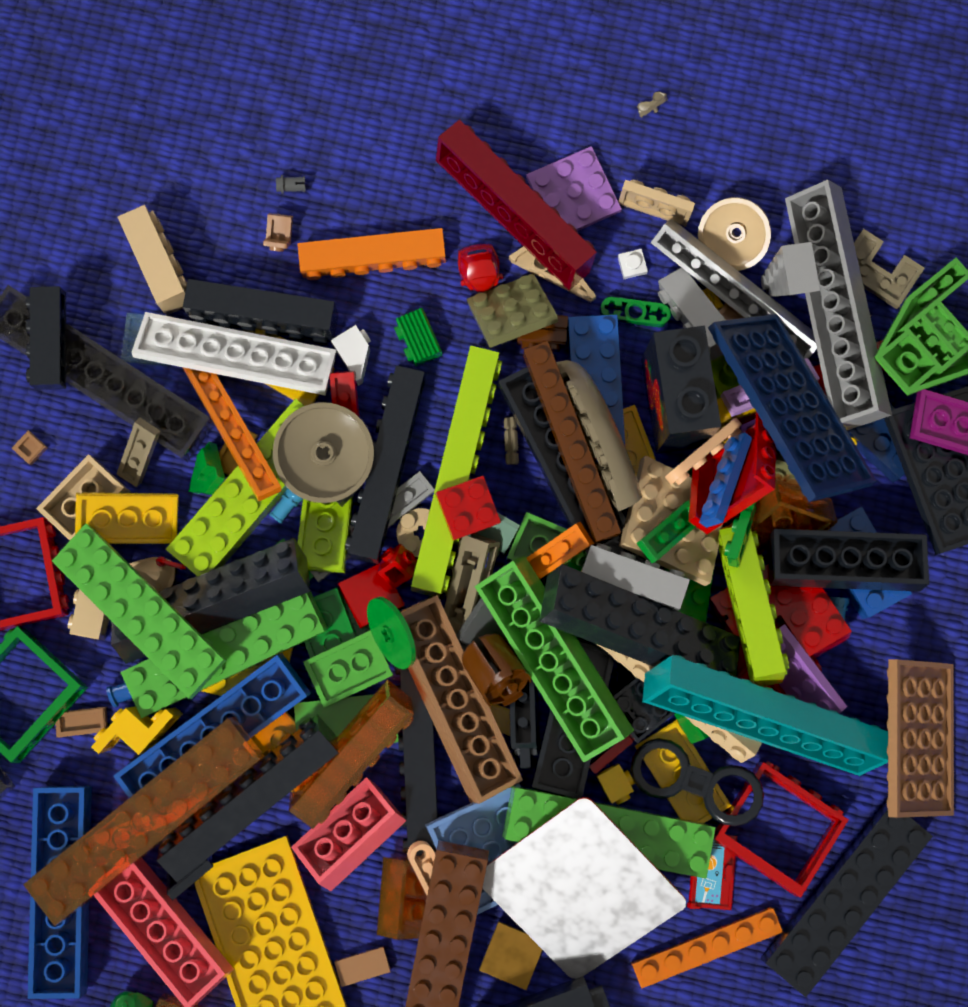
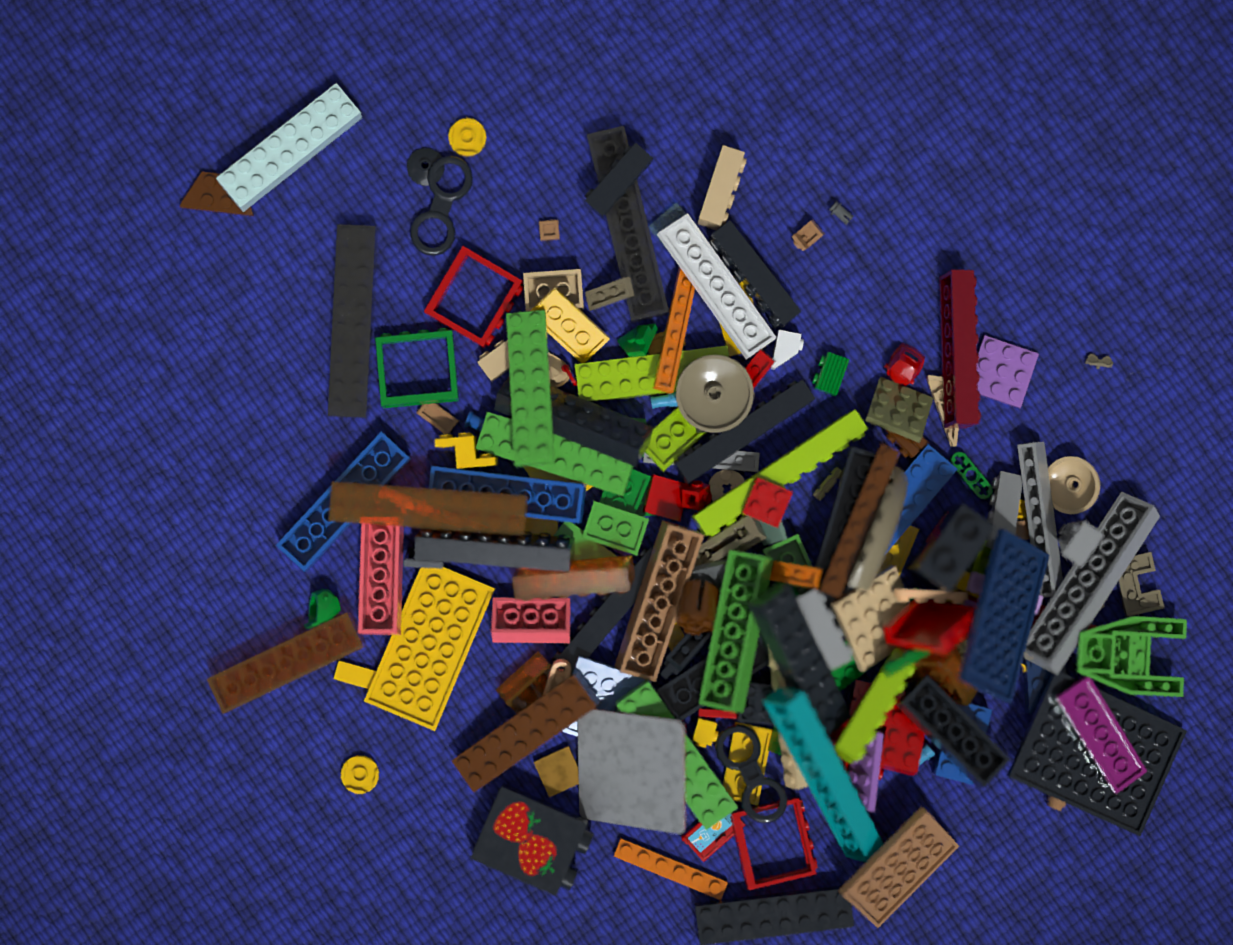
camera: 40 degrees right, 5 degrees up
(362, 966) = (471, 699): medium nougat tile -> none
(371, 253) = (850, 299): orange brick -> none
(391, 632) = (659, 532): green piece -> none
(632, 264) = (996, 446): white plate -> none
(656, 202) = (1043, 424): tan plate -> none
(667, 533) = (864, 622): green plate -> none
(725, 480) = (926, 622): blue plate -> none

